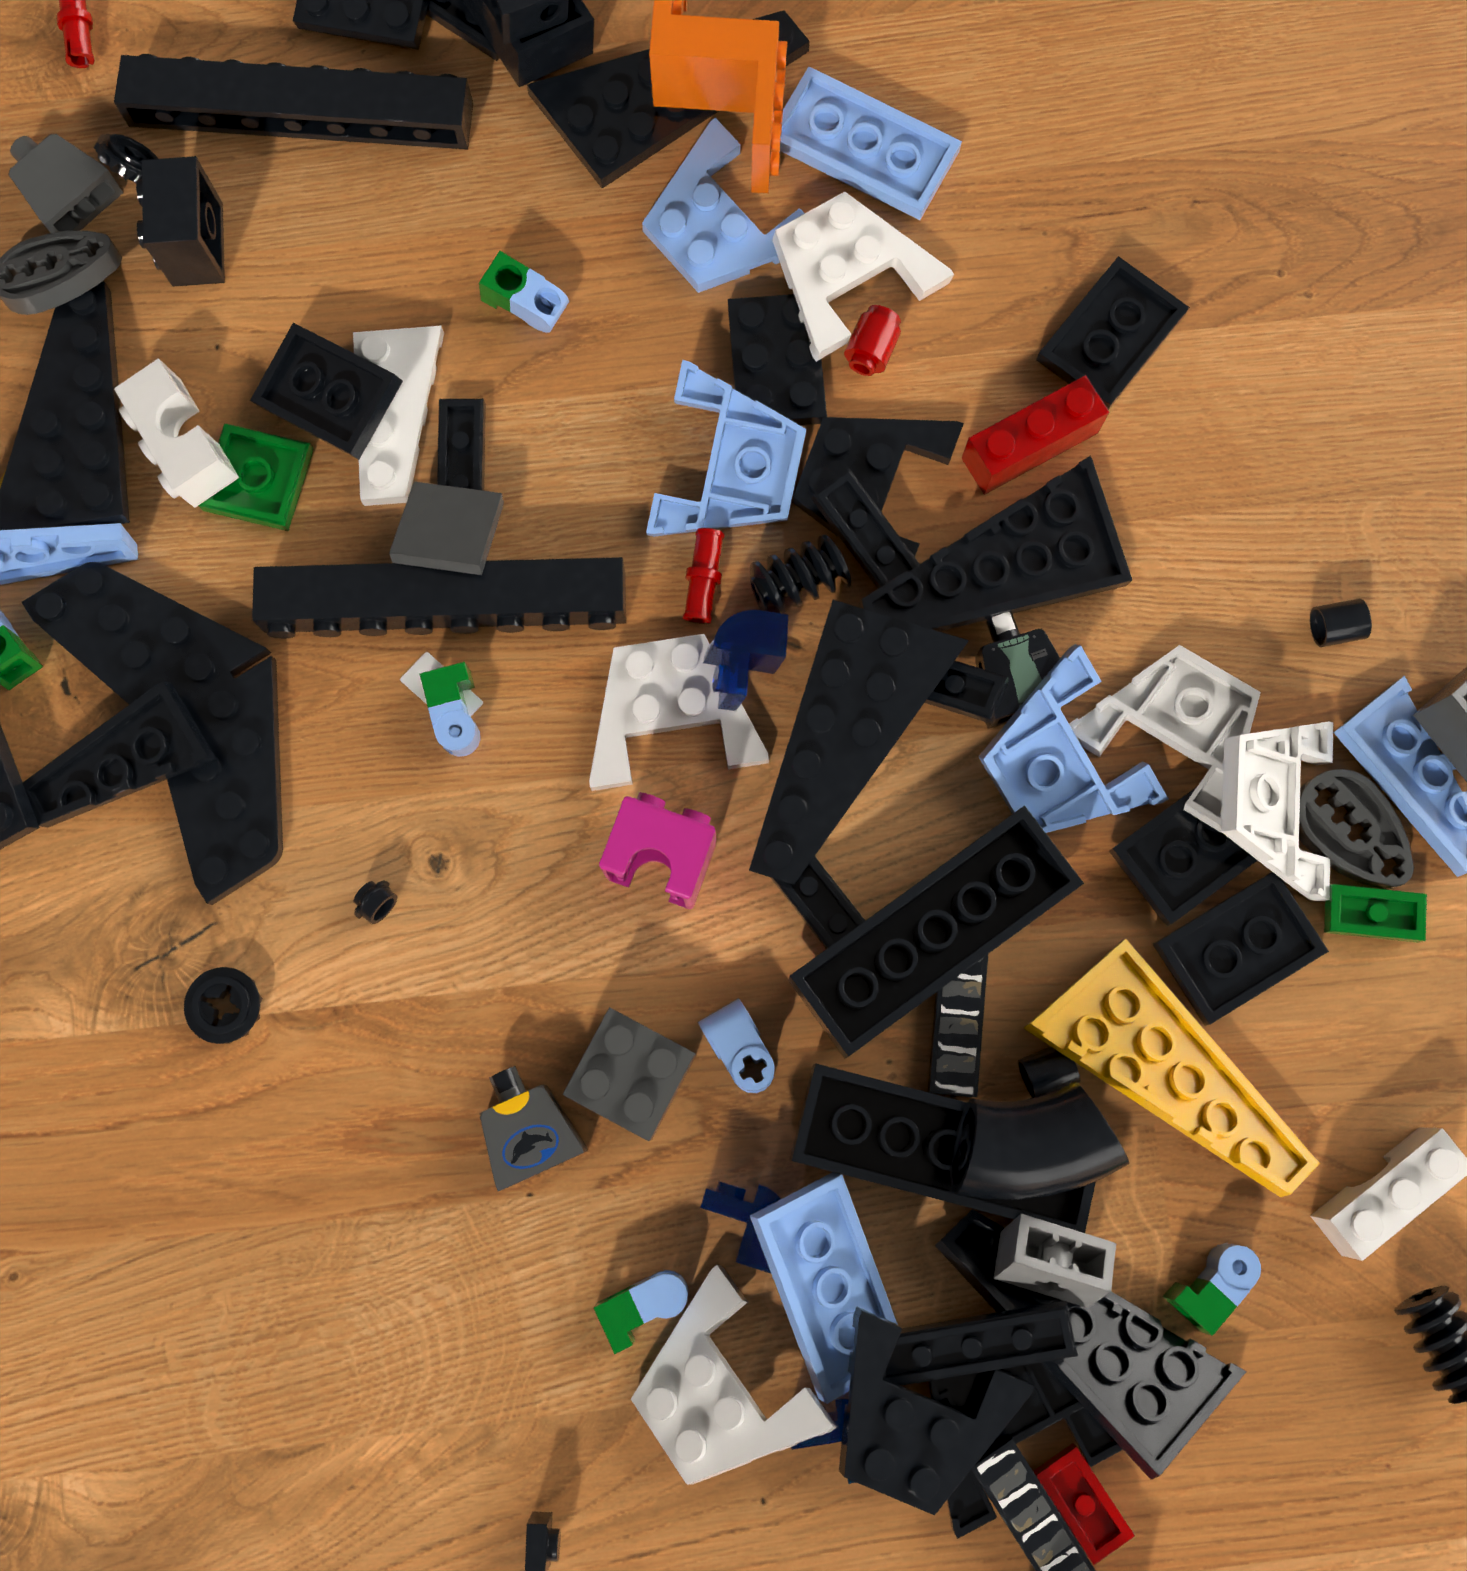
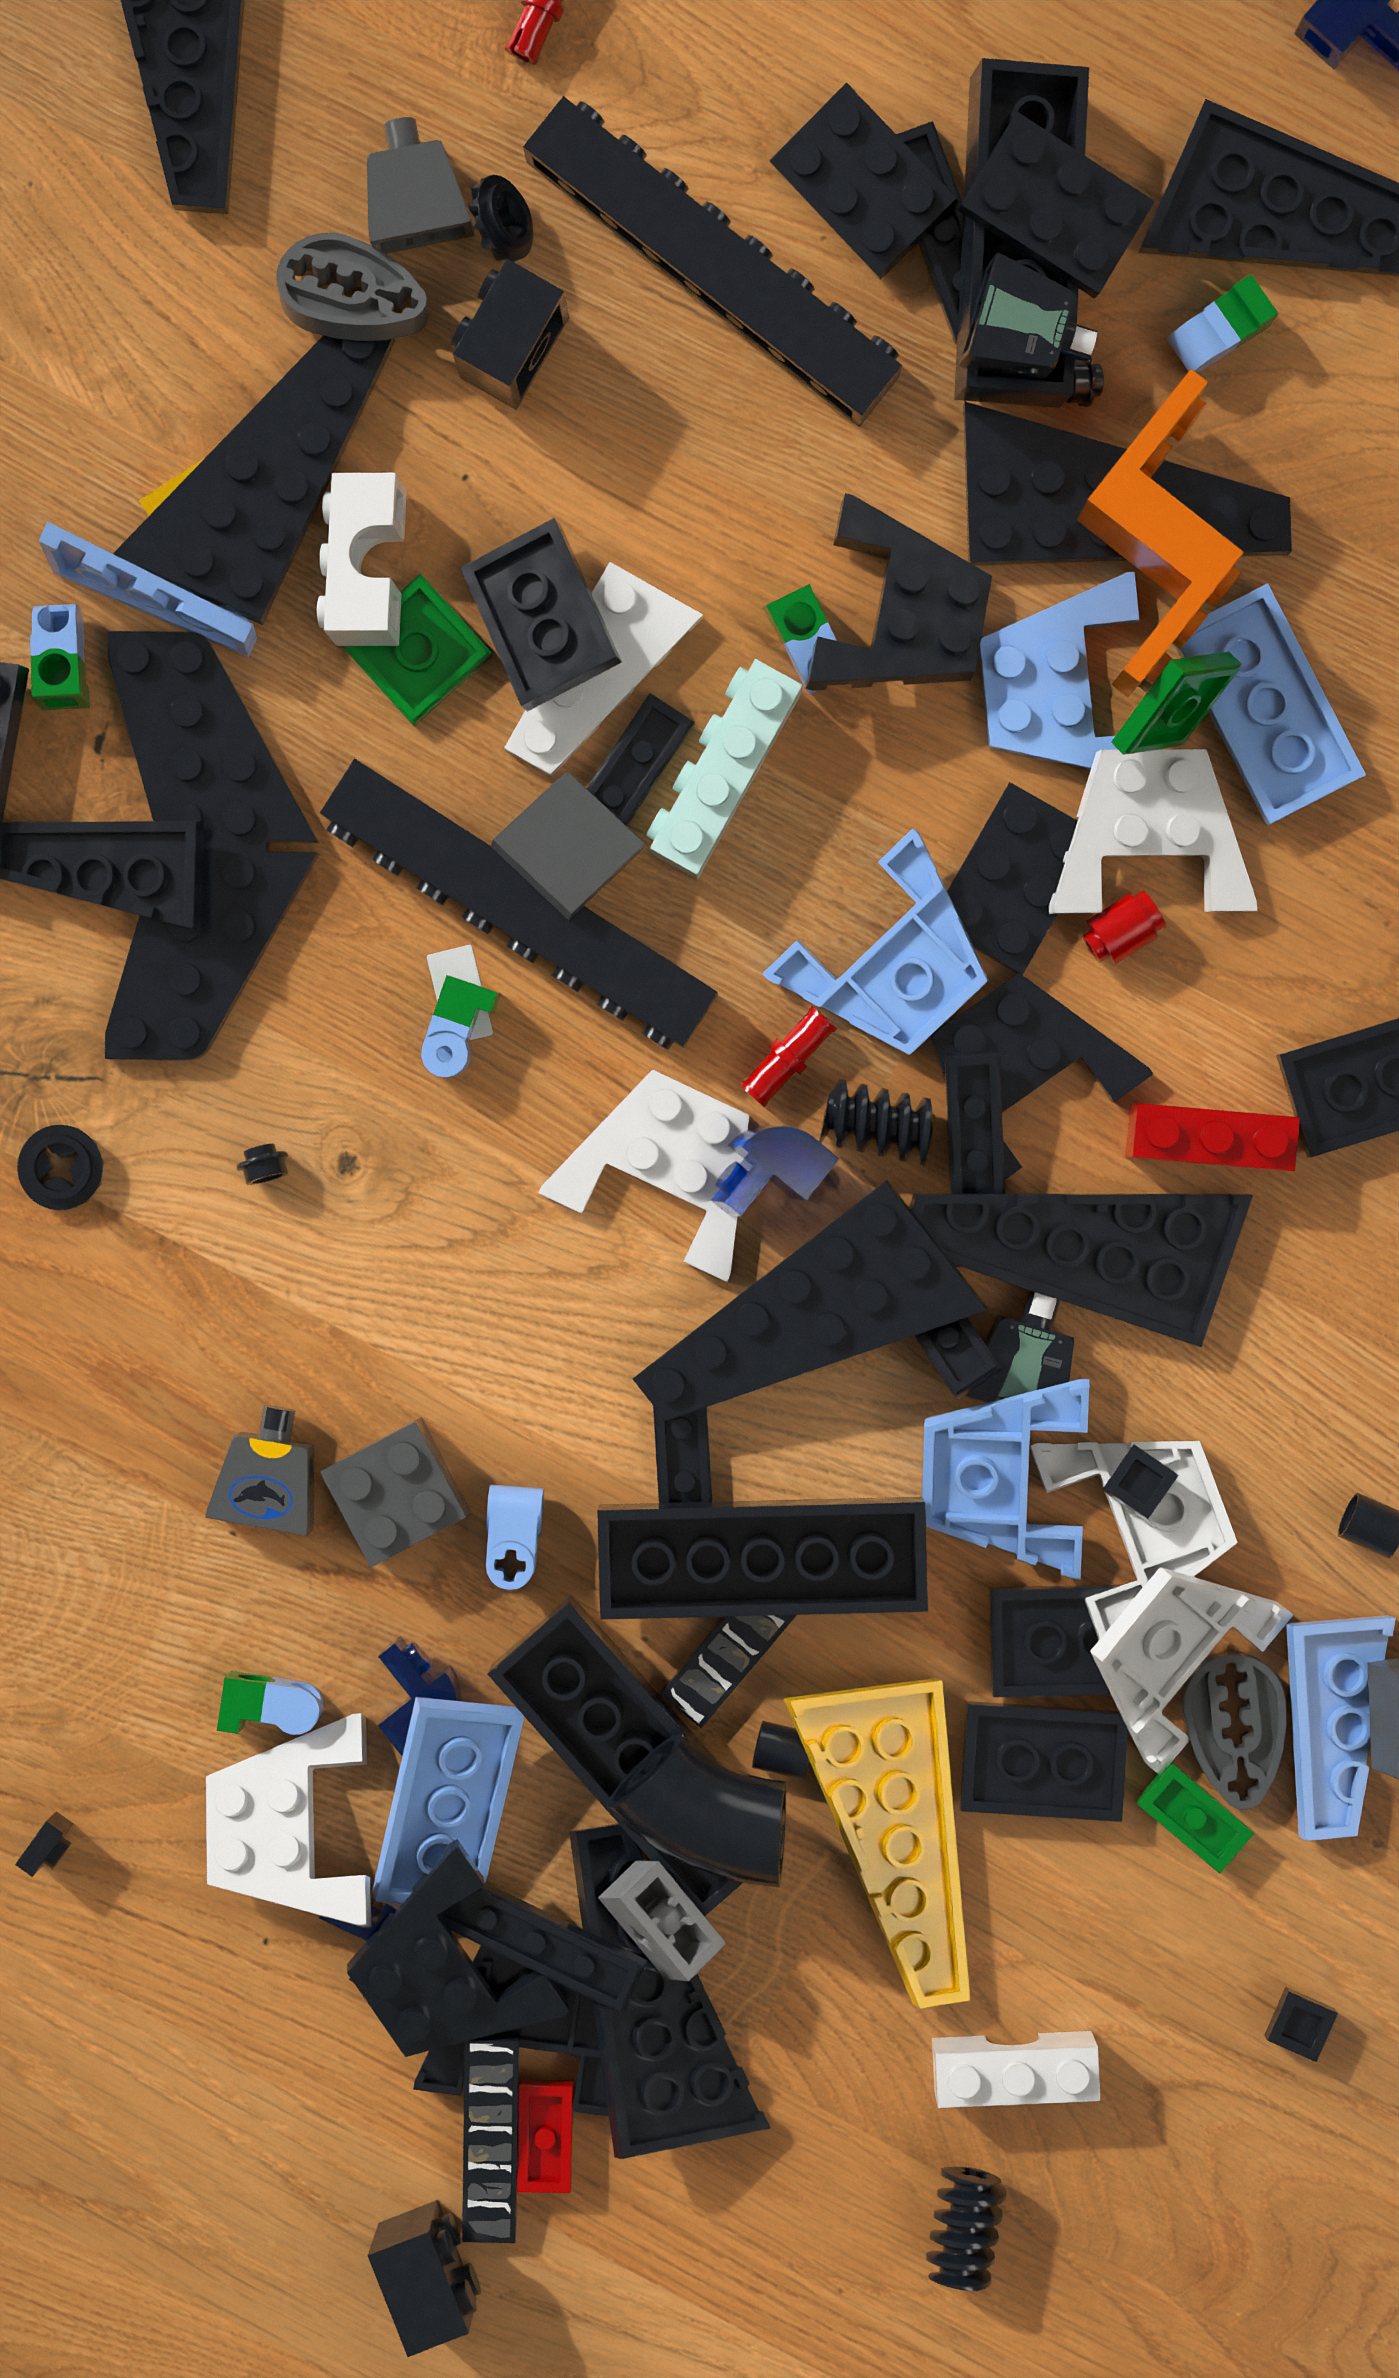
camera: 30 degrees right, 10 degrees up
(525, 412) = (726, 768): none -> light aqua brick
(592, 223) = (925, 615): none -> black wing
(603, 24) = (1087, 383): none -> black plate
(653, 834) = (563, 1283): dark pink piece -> none
(803, 162) = (1176, 702): none -> green tile
(1162, 695) = (1140, 1482): none -> black plate
(1218, 1289) = (797, 2042): leg -> none

